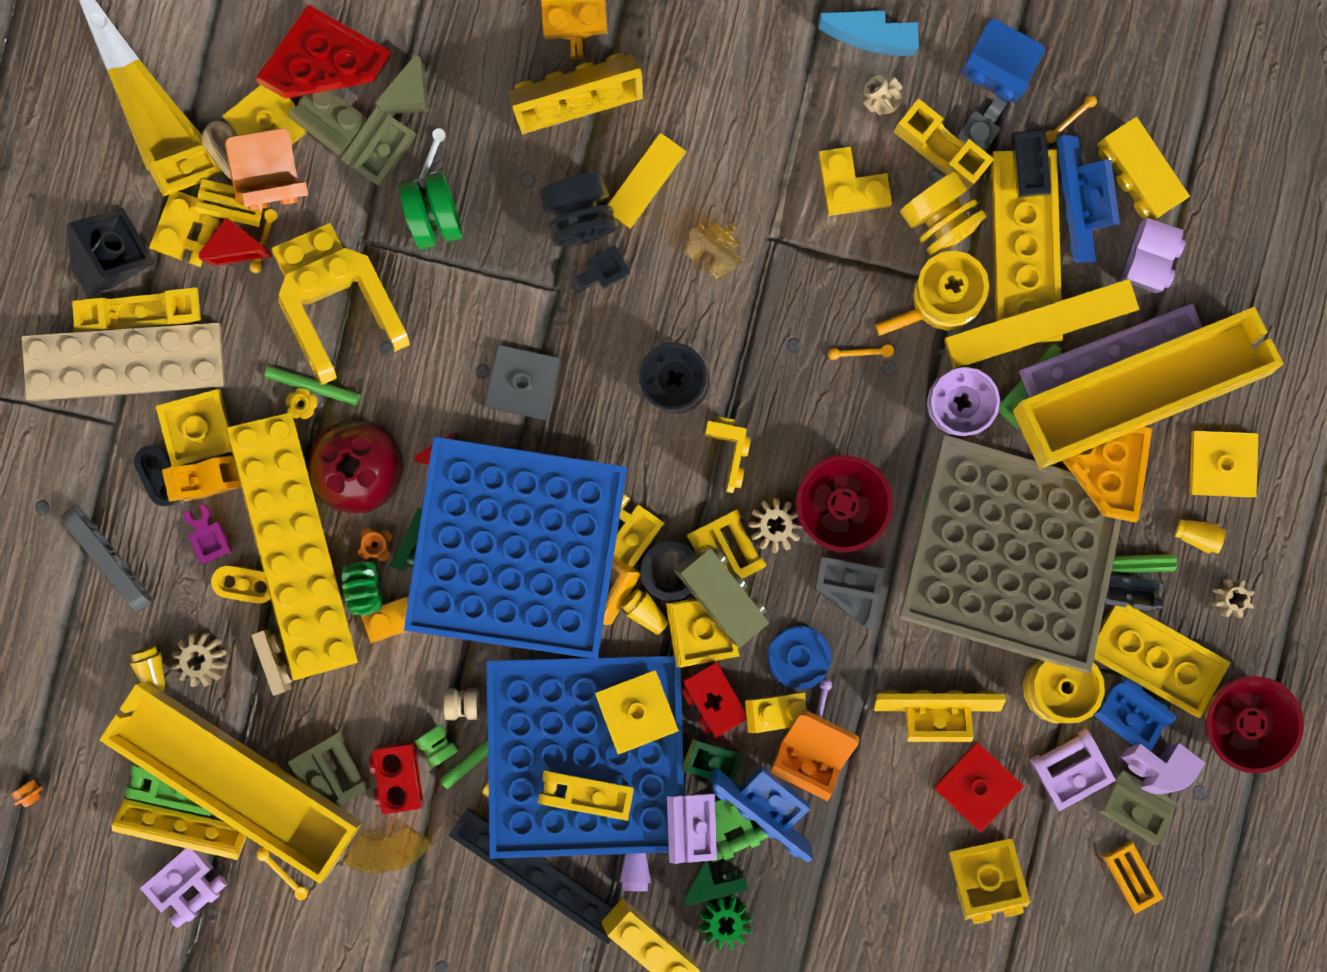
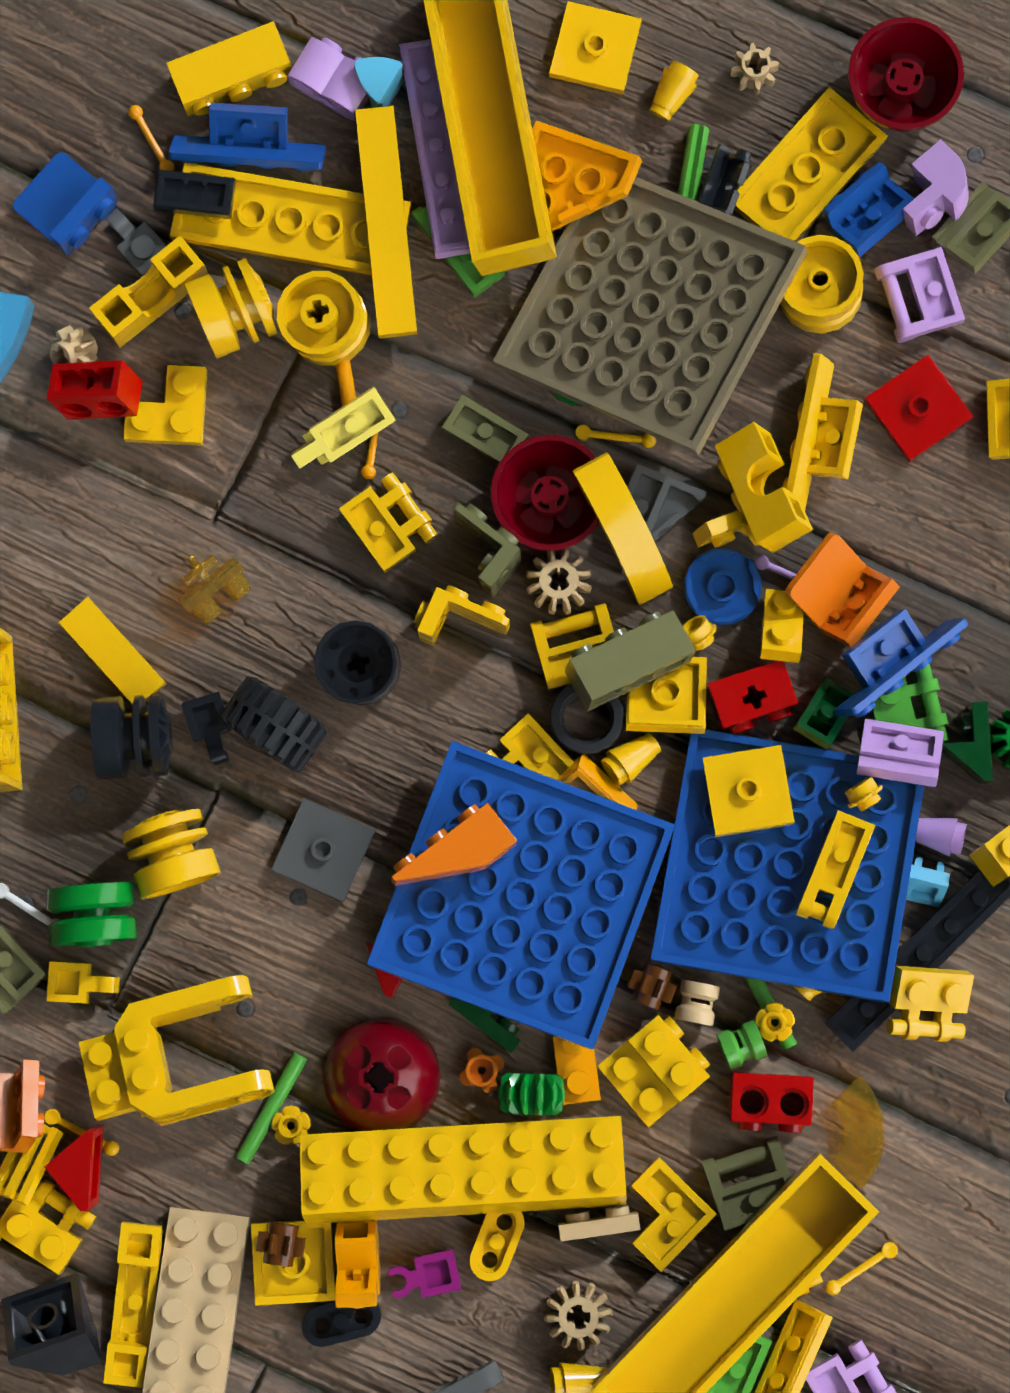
camera: 70 degrees left, 5 degrees down
(203, 415) = (280, 1244): none -> reddish brown gear
(293, 723) = (679, 1217): none -> yellow plate
(377, 208) = (74, 983): none -> yellow plate
(403, 681) = (655, 1069): none -> yellow plate
(465, 773) = (783, 1015): none -> yellow plate
(467, 665) = (651, 986): none -> reddish brown gear
(492, 262) = (170, 853): none -> yellow wheel
(508, 888) = (929, 990): none -> yellow plate
(542, 499) = (467, 848): none -> orange slope
(592, 869) = (926, 884): none -> medium azure tile
(610, 321) = (273, 723): none -> black tyre
(652, 805) = (864, 794): none -> yellow plate
(758, 646) = (700, 631): none -> yellow plate
(774, 471) = (497, 566): none -> olive bracket
(788, 371) = (377, 527): none -> yellow plate
(828, 568) = (624, 528): none -> yellow slope
(844, 648) = (721, 530): none -> yellow plate
(853, 118) = (94, 390): none -> red brick
(863, 327) = (344, 429): none -> light yellow hinge
(886, 439) = (482, 429): none -> olive plate
(902, 520) = (584, 433): none -> yellow hinge
(903, 657) = (747, 462): none -> yellow arch
(980, 394) = (454, 309): lavender wheel -> none
(1159, 293) = (380, 79): none -> medium azure tile

